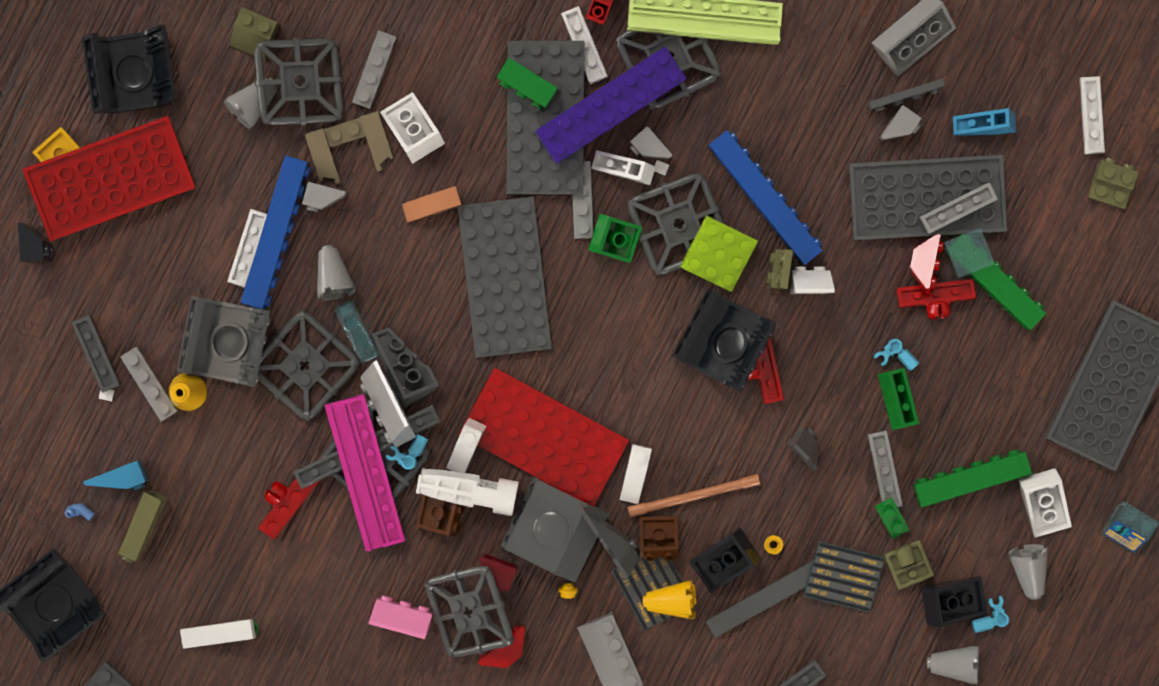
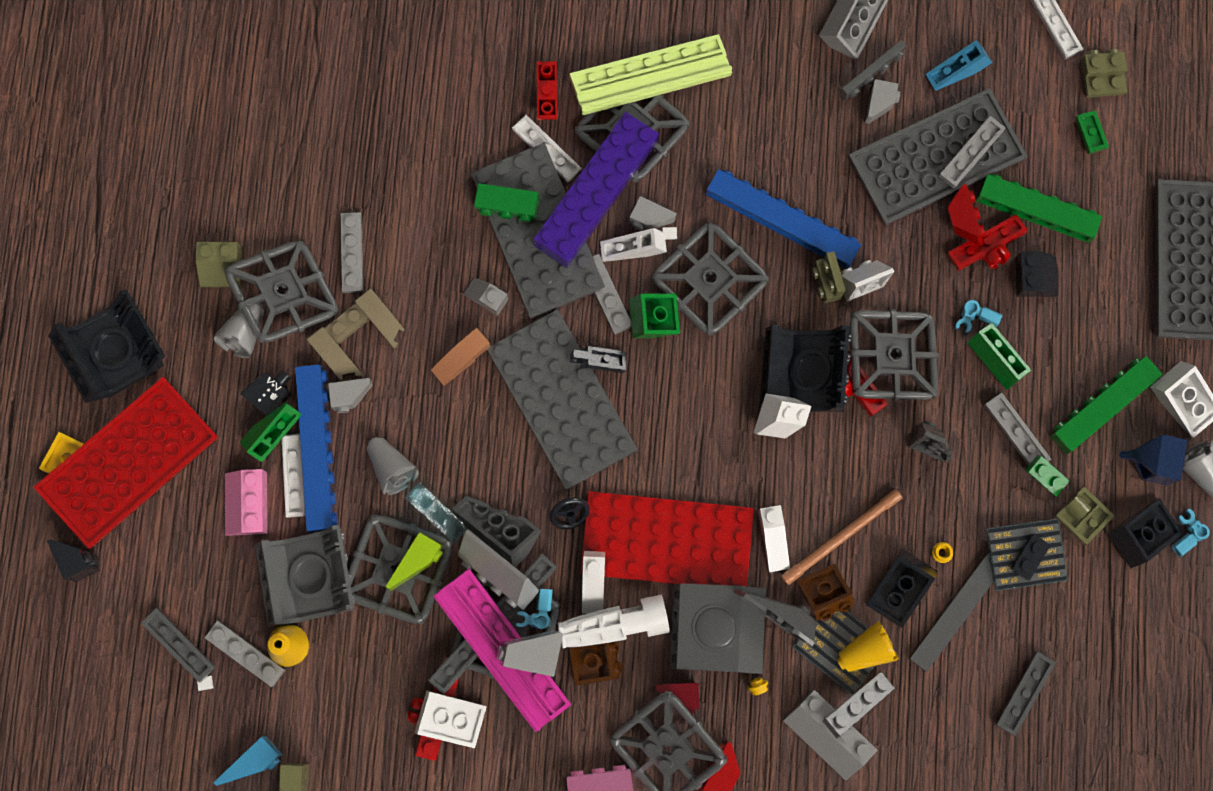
camera: 25 degrees left, 10 degrees down
(197, 255) = (246, 502): none -> bright pink slope
(240, 203) = (269, 431): none -> green slope
(253, 168) = (268, 393): none -> black torso
(299, 511) = (450, 719): none -> white plate
(326, 365) = (417, 559): none -> lime slope
(388, 487) = (532, 653): none -> light grey slope
(412, 127) = (412, 291): white slope -> none
(470, 376) = (568, 509): none -> black piece
(476, 158) = (487, 296): none -> light grey slope
(551, 257) = (600, 359): none -> hinge
(644, 641) = (858, 705): none -> plate
(686, 373) = (781, 416): none -> white slope
(719, 253) = (762, 289): lime plate -> none
(796, 363) = (885, 364): none -> dark grey plate
(845, 580) = (1030, 557): none -> black plate
(956, 664) = (1180, 594): light grey cone -> none
(966, 340) = (1036, 274): none -> black slope
(969, 253) = (1002, 188): clear light blue tile -> none
(993, 544) = (1159, 459): none -> dark blue piece
(1075, 232) = (1091, 132): none -> green plate

